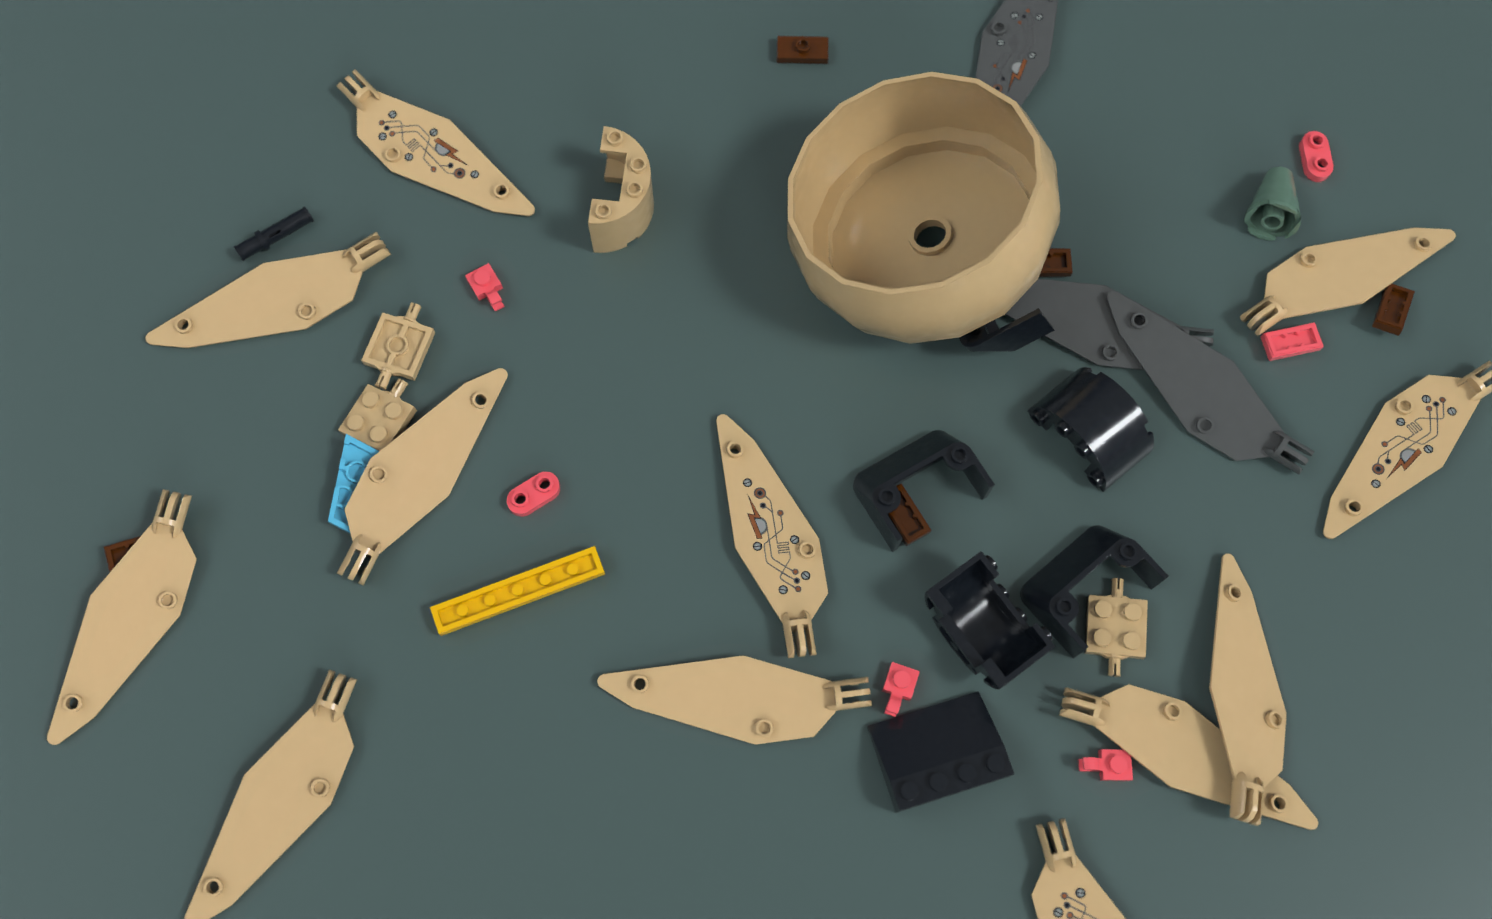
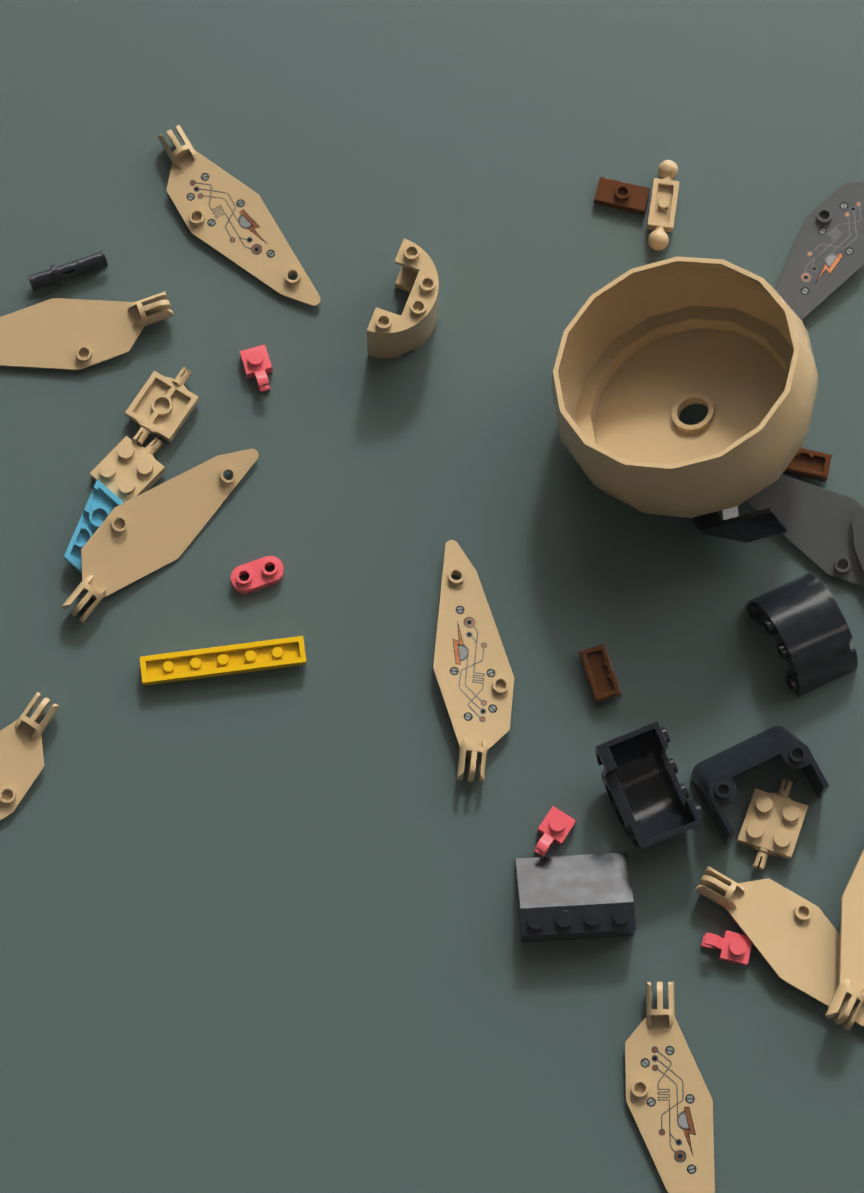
camera: 15 degrees right, 0 degrees up
(737, 697) = (402, 804): tan wing -> none
(844, 50) = (663, 205): none -> tan plate
(878, 483) = (581, 638): black windscreen -> none

